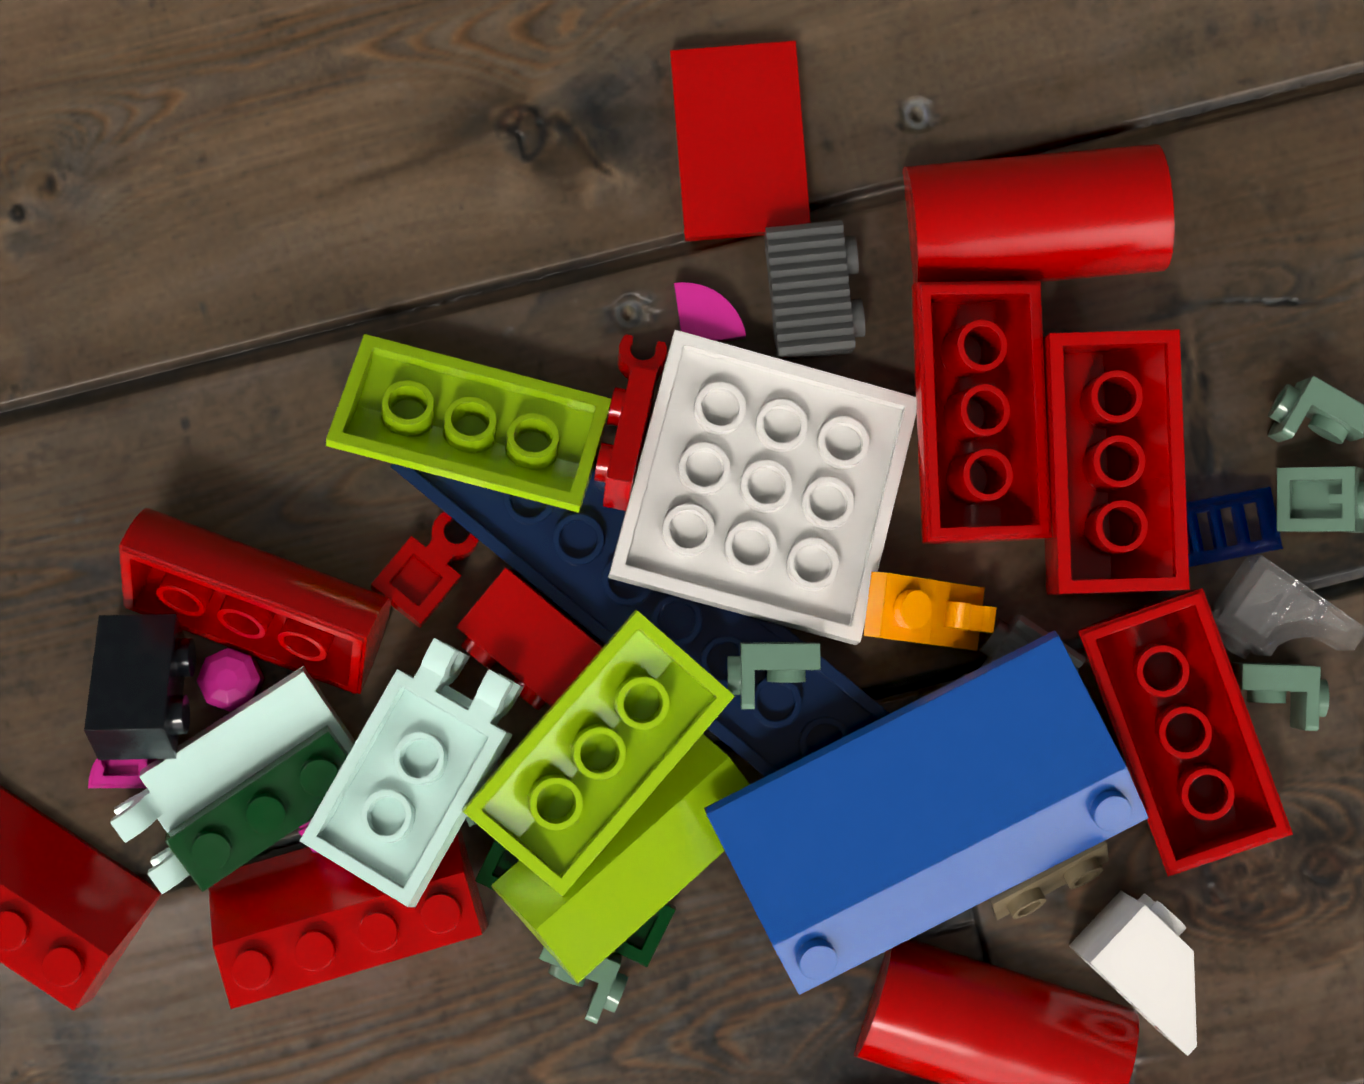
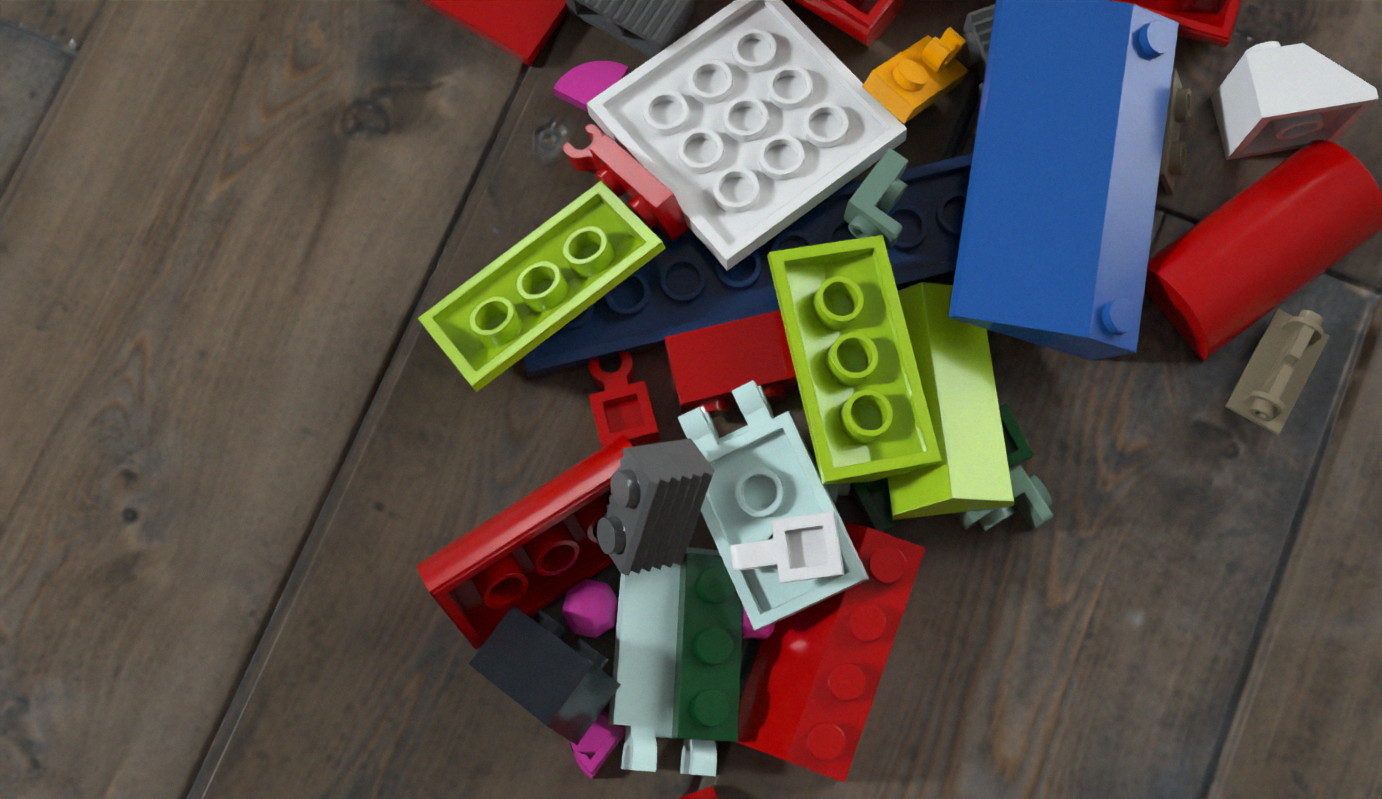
camera: 50 degrees left, 10 degrees down
(338, 677) = (654, 505): none -> dark grey brick
(387, 831) = (800, 547): none -> white plate

